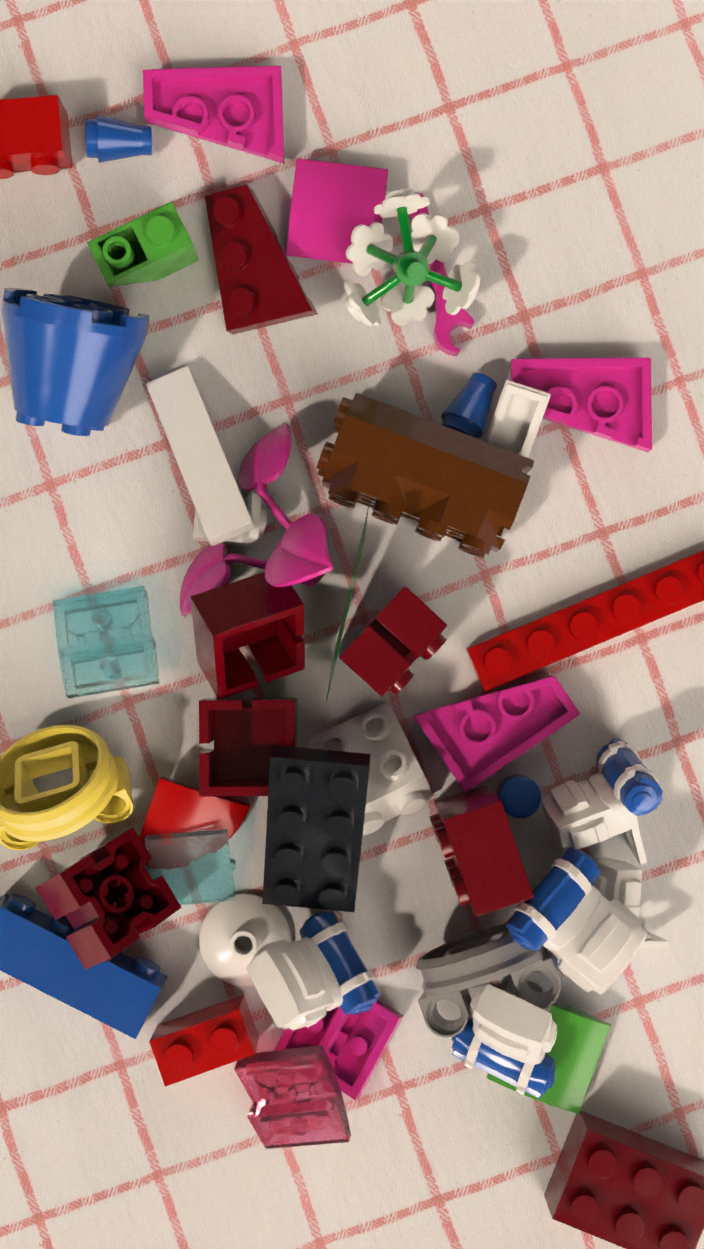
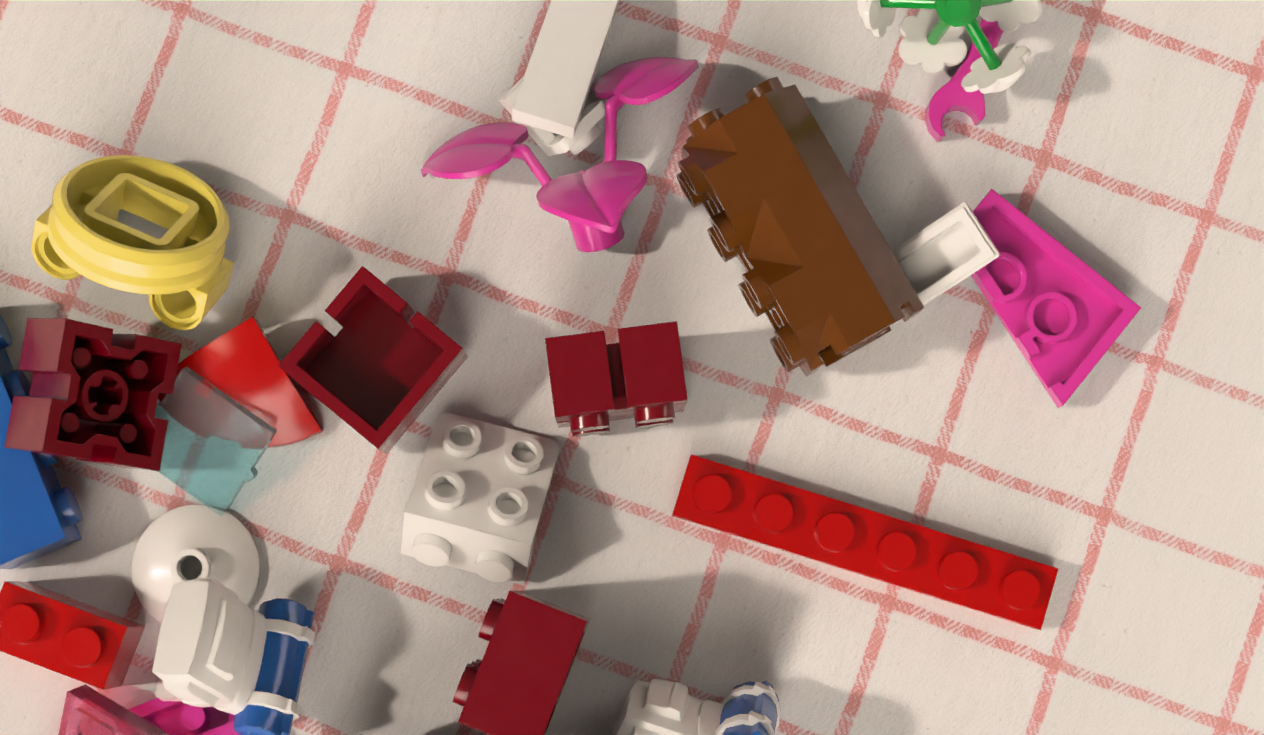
camera: 40 degrees right, 5 degrees down
(105, 642) = (318, 132): clear light blue slope -> none
(253, 616) = (487, 222): dark red piece -> none
(314, 827) = (369, 501): black plate -> none
(347, 603) = (603, 290): green sticker -> none
(471, 406) = (907, 203): blue cone -> none
(495, 728) = (650, 564): dark pink wing -> none
(519, 796) = (615, 659): blue piece -> none

